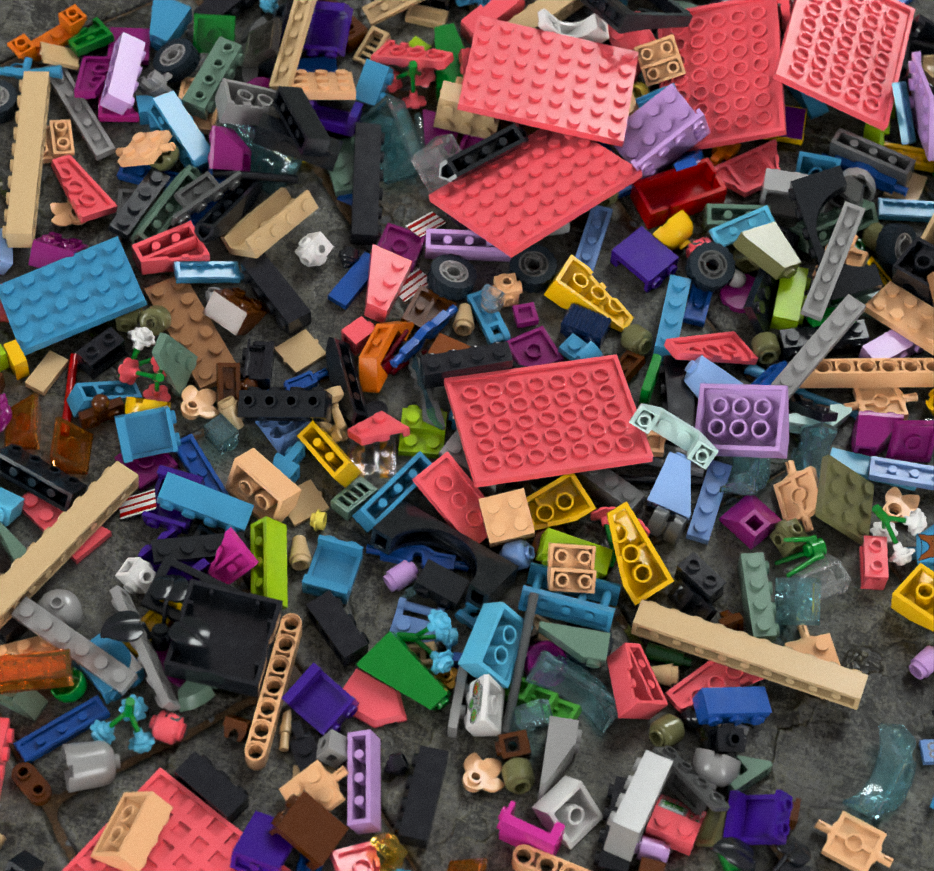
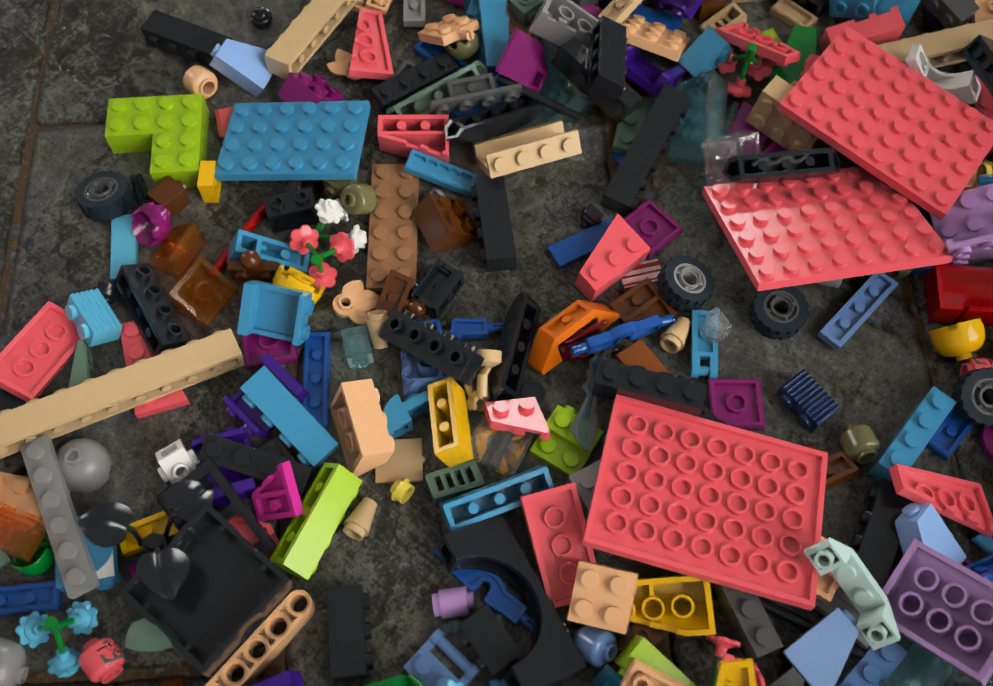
camera: 30 degrees right, 5 degrees up
(46, 373) = (233, 207): tan tile -> none
(138, 503) = (230, 383): sticker -> none
(147, 656) = (115, 609): light grey plate -> none
(175, 361) = (346, 248): sand green wing -> none
(300, 351) = (488, 294): tan piece -> none
(313, 249) = (557, 194): white brick -> none
(333, 568) = (385, 557): dark azure panel -> none
(357, 334) = (554, 300): coral brick -> none
(428, 221) = (687, 216): sticker -> none
(461, 243) = (712, 251): lavender brick -> none
(510, 286) = (742, 321): light nougat brick -> none
(525, 315) = (746, 358): magenta plate -> none
(576, 348) = (786, 426): dark azure brick -> none
(578, 286) = (821, 354): yellow wedge -> none
(645, 258) = (912, 354): dark purple panel -> none
(650, 380) = (851, 505): green tile -> none

